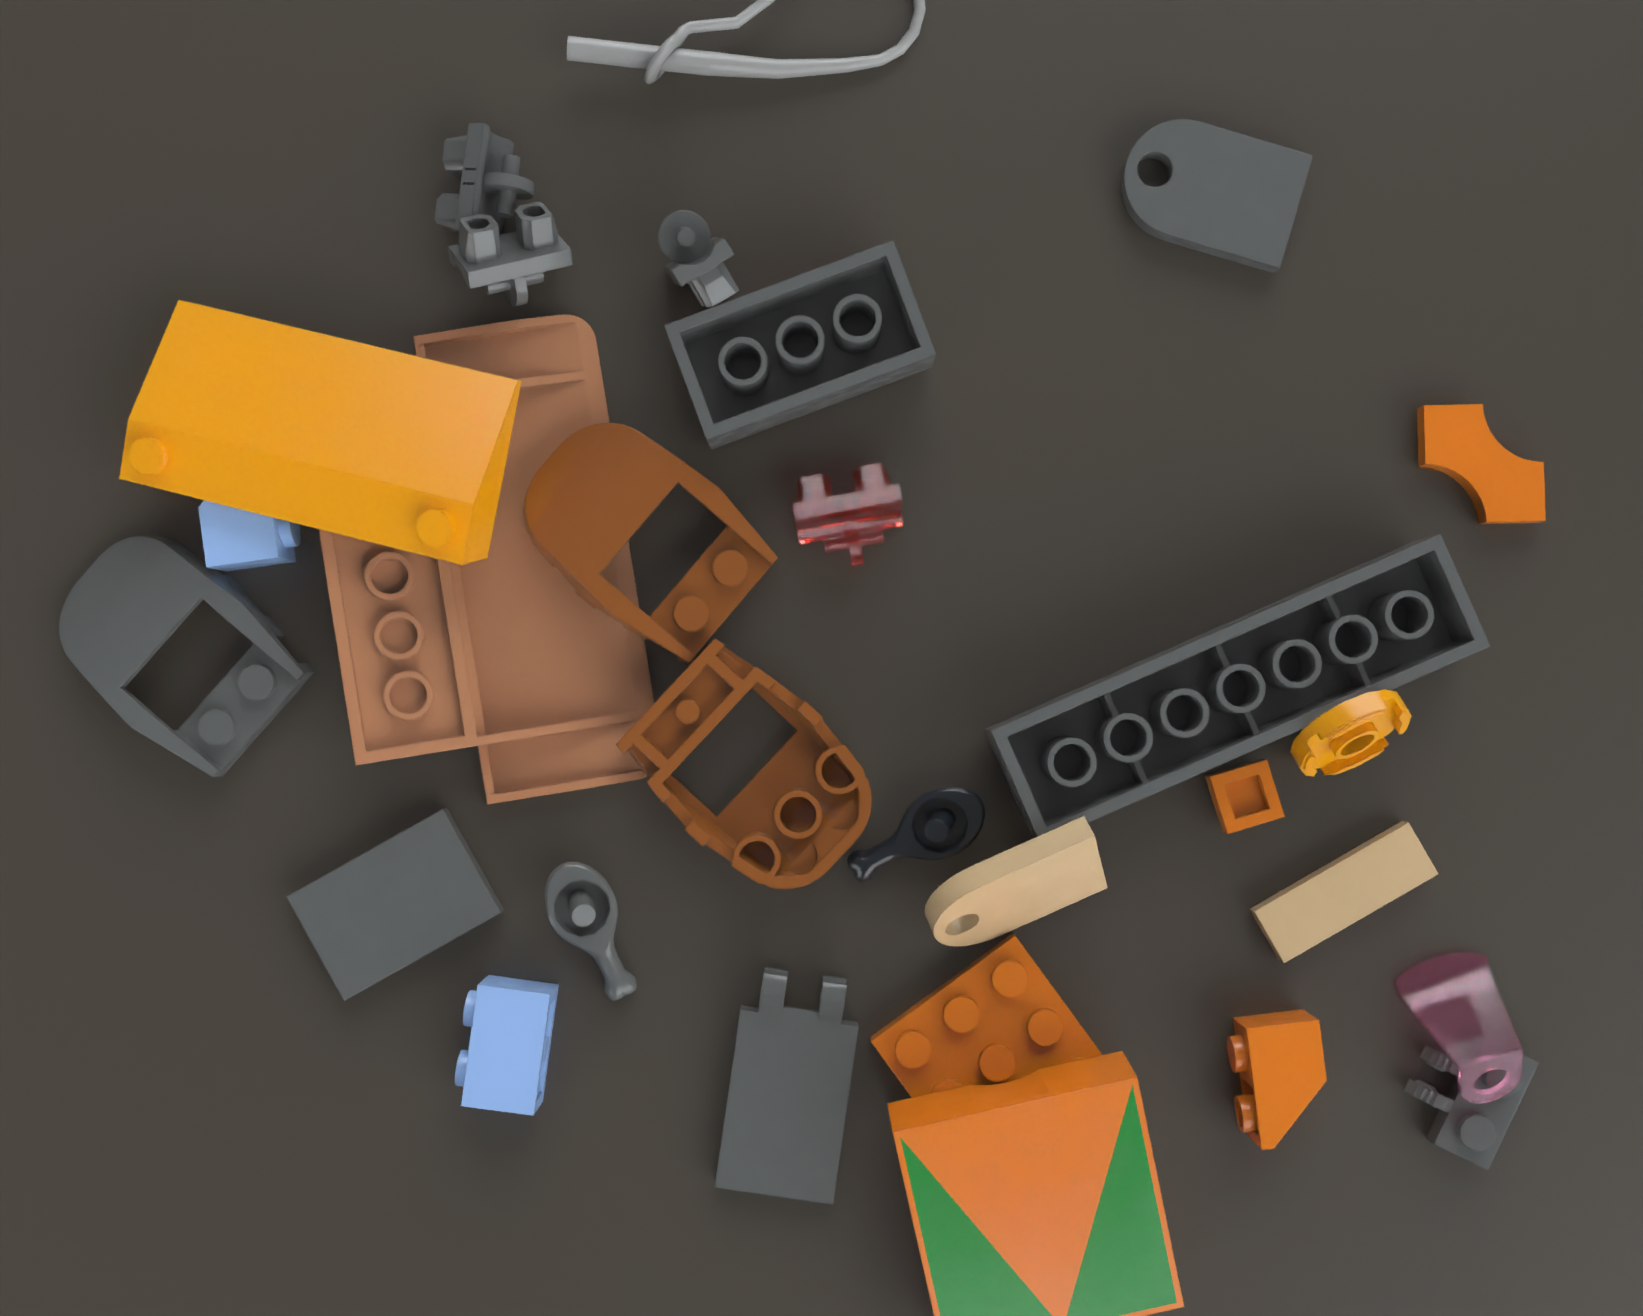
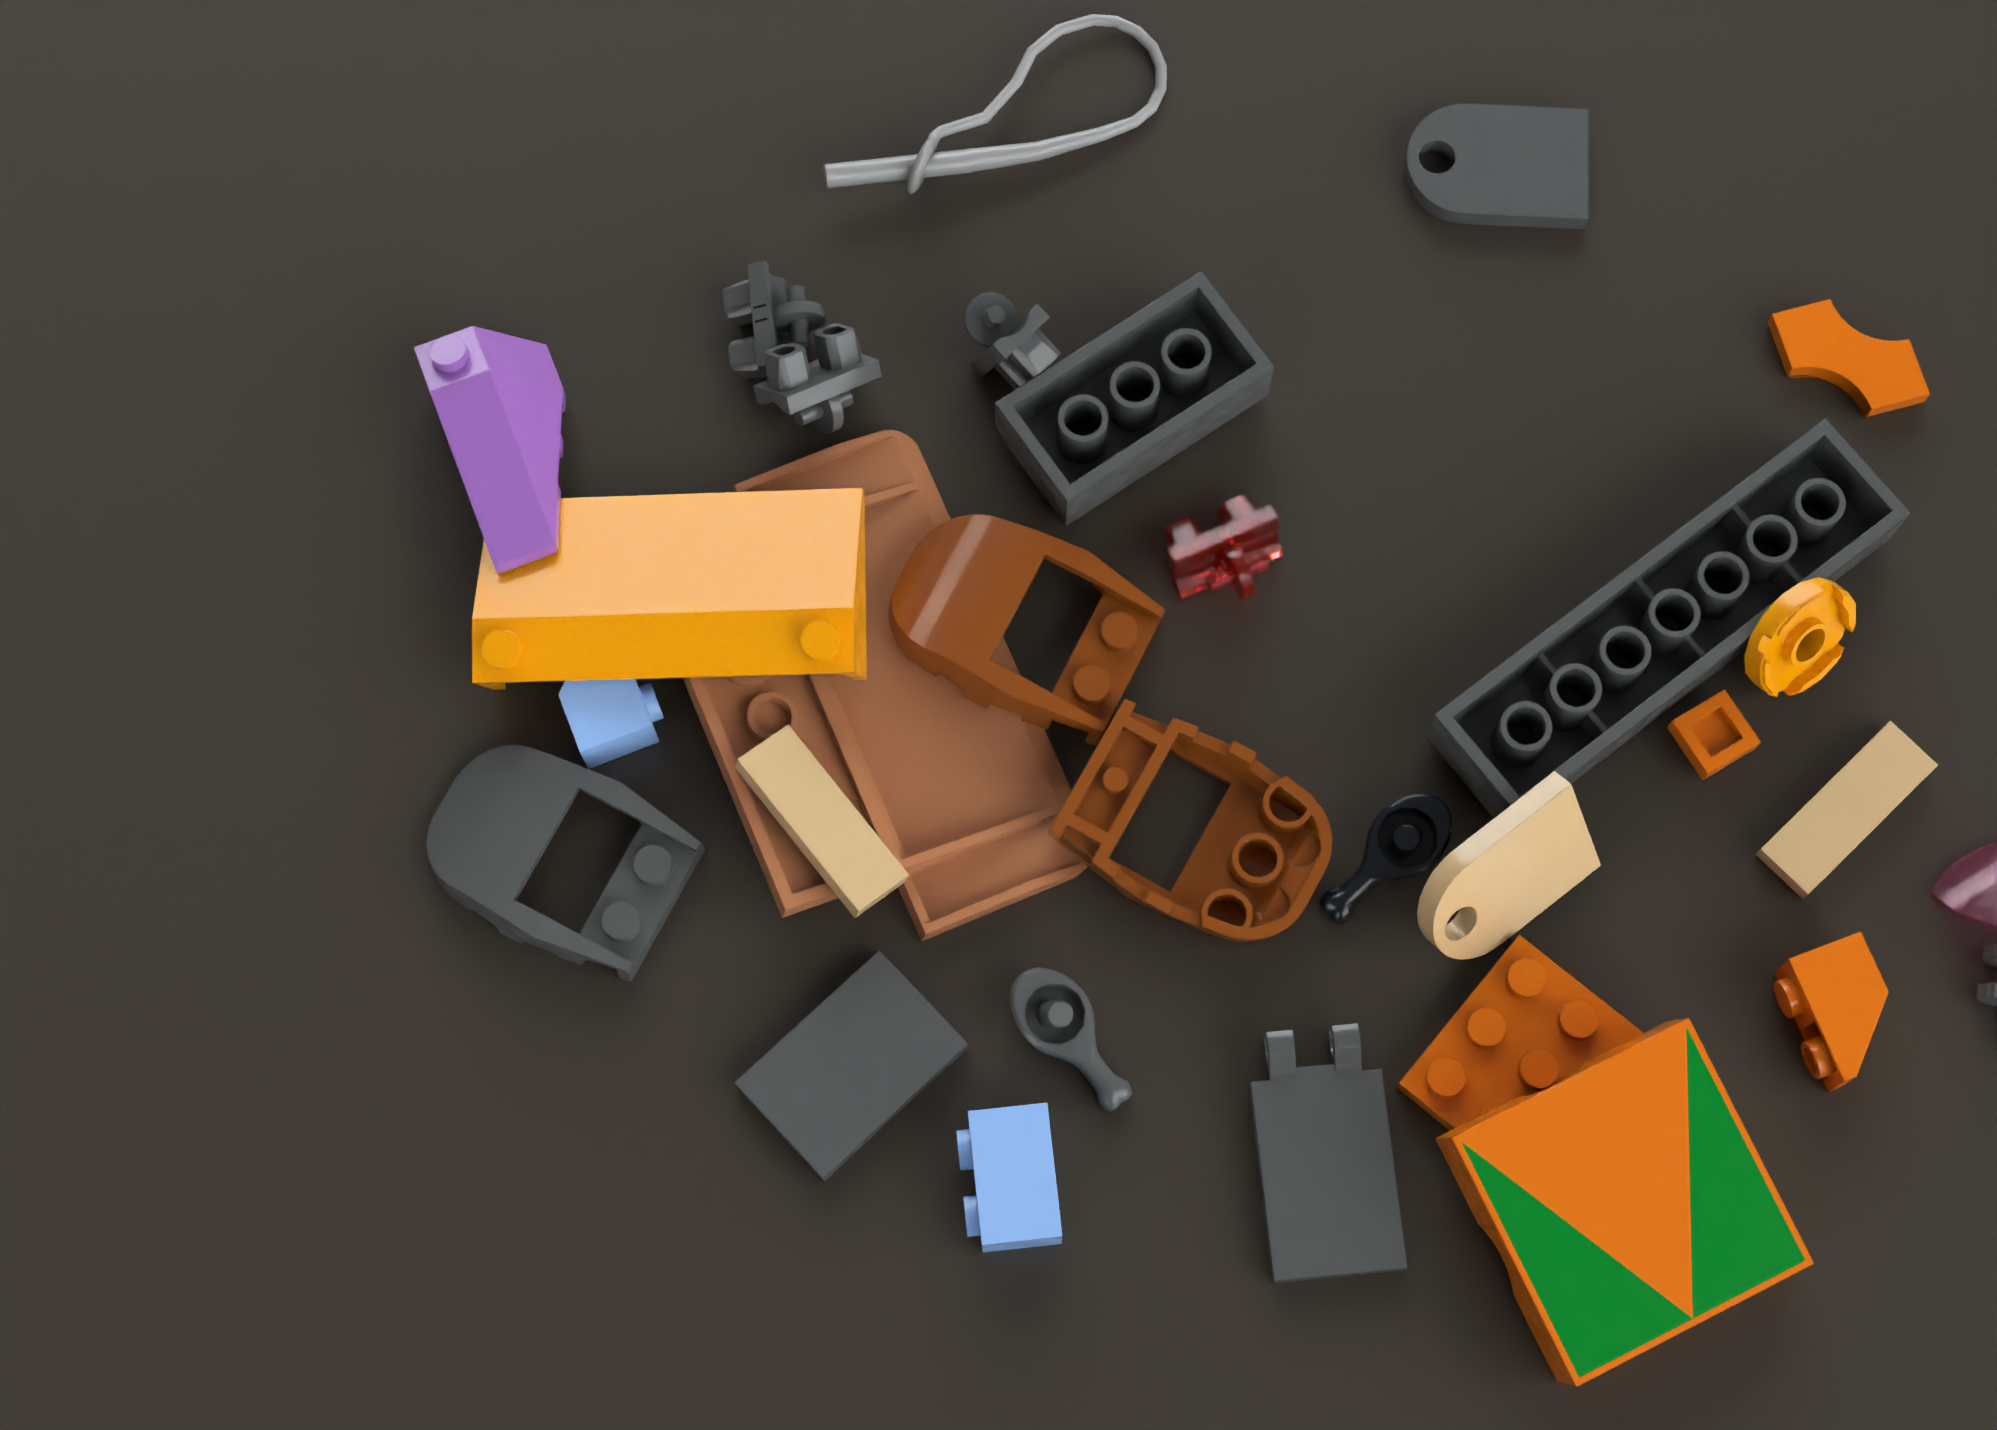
camera: 10 degrees left, 15 degrees down
(201, 230) = (504, 429): none -> medium lavender wedge
(407, 689) = (821, 821): none -> tan tile

